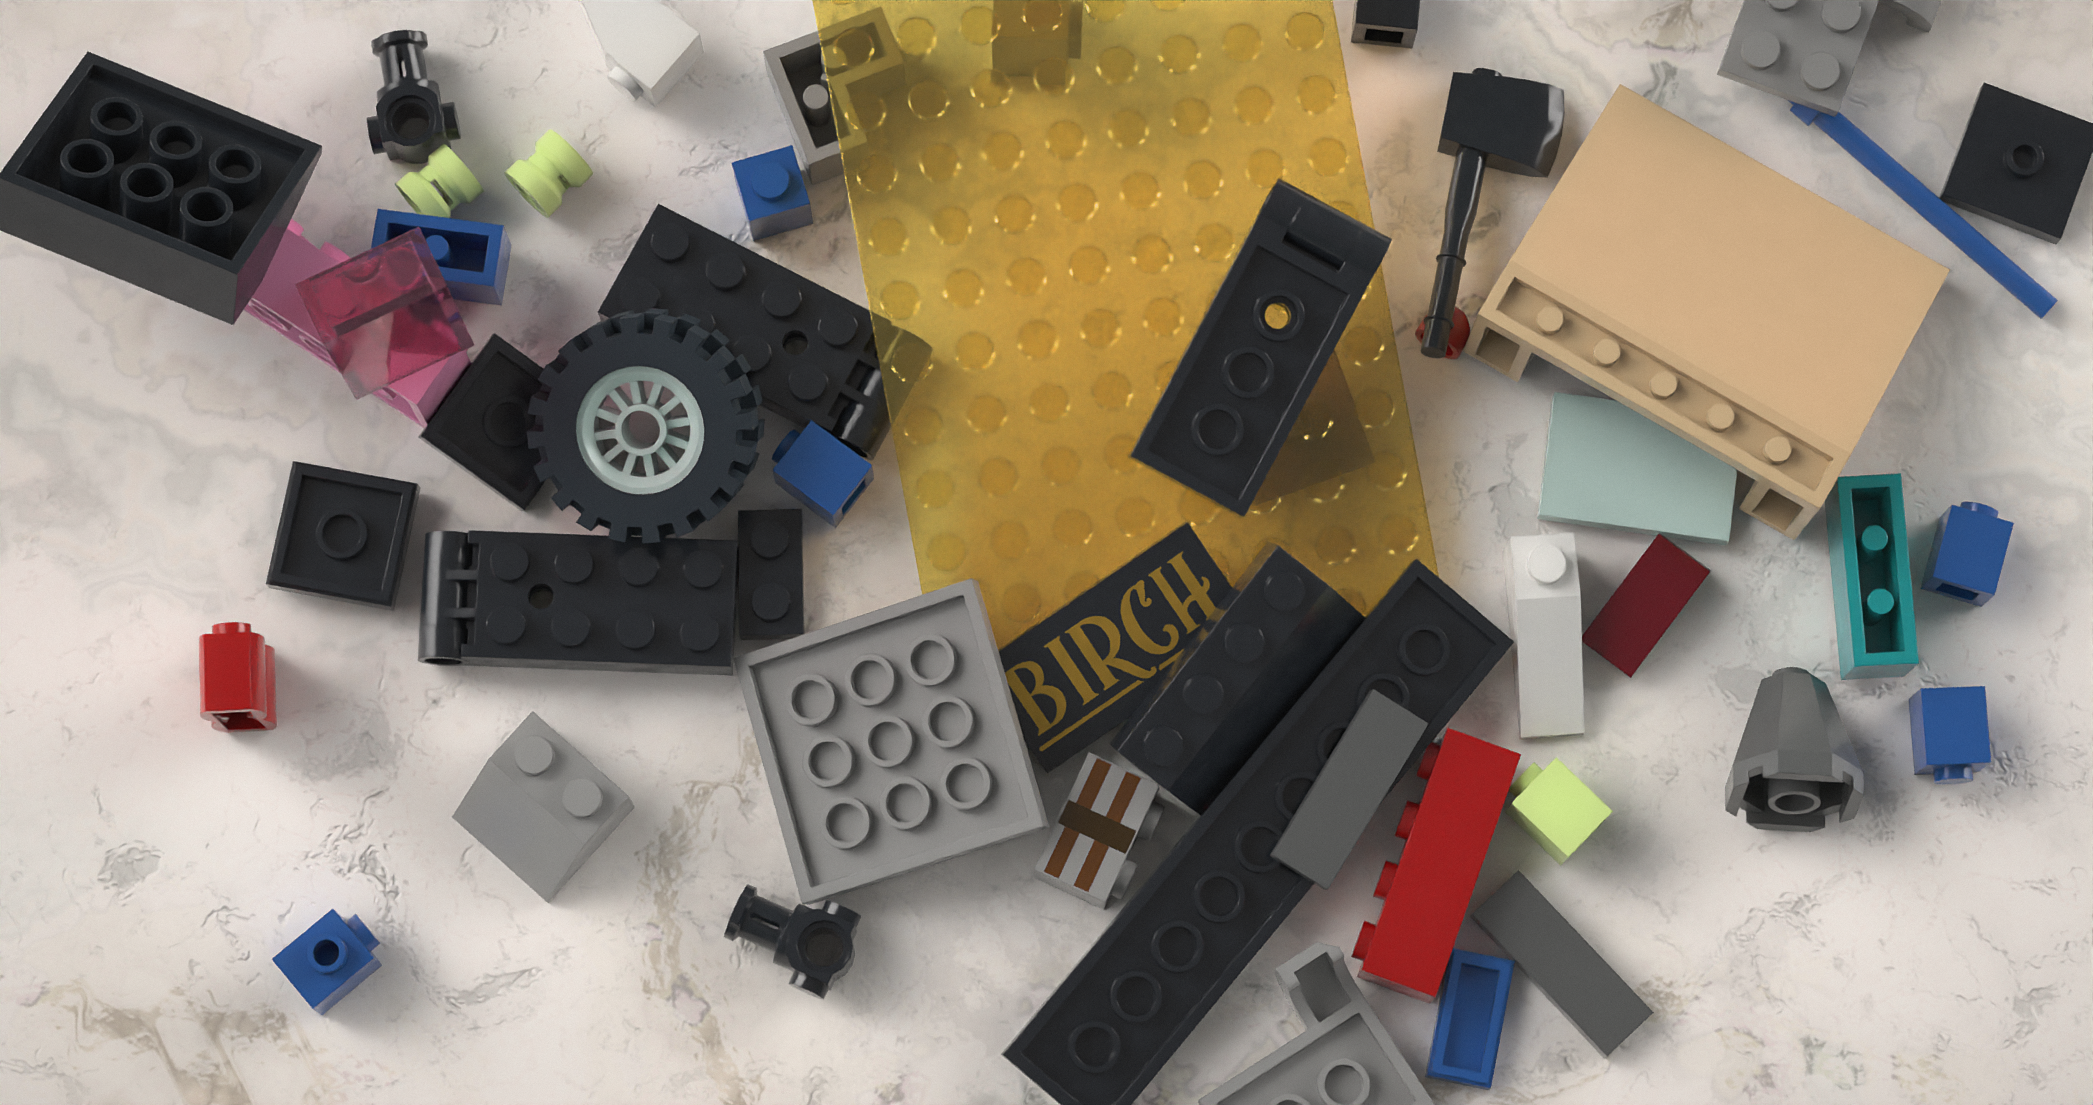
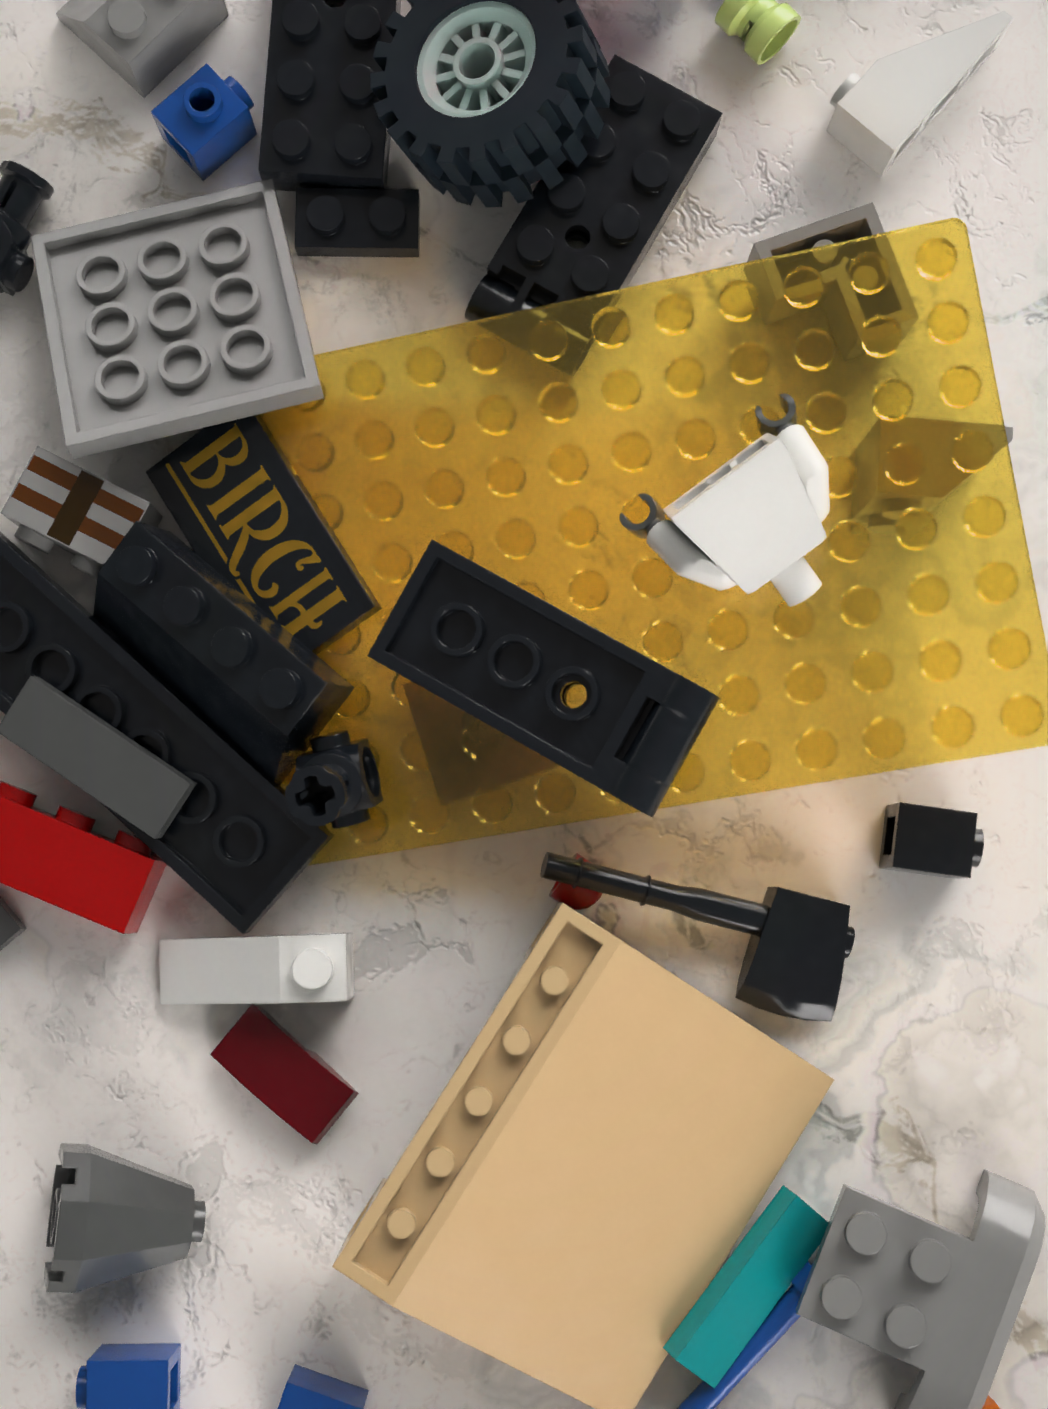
camera: 90 degrees right, 5 degrees up
(671, 728) = (206, 120): none -> blue brick
(772, 193) = (730, 220): blue brick -> none
(821, 472) = (449, 264): blue brick -> none
(1105, 151) = (749, 516): none -> white torso
(1363, 550) = (334, 782): none -> black connector
(1556, 809) = (75, 970): yellowish green brick -> none
(1631, 474) = (413, 1050): light aqua tile -> none
(1817, 160) = (747, 1287): none -> teal tile
(1871, 577) = (285, 1317): teal brick -> none

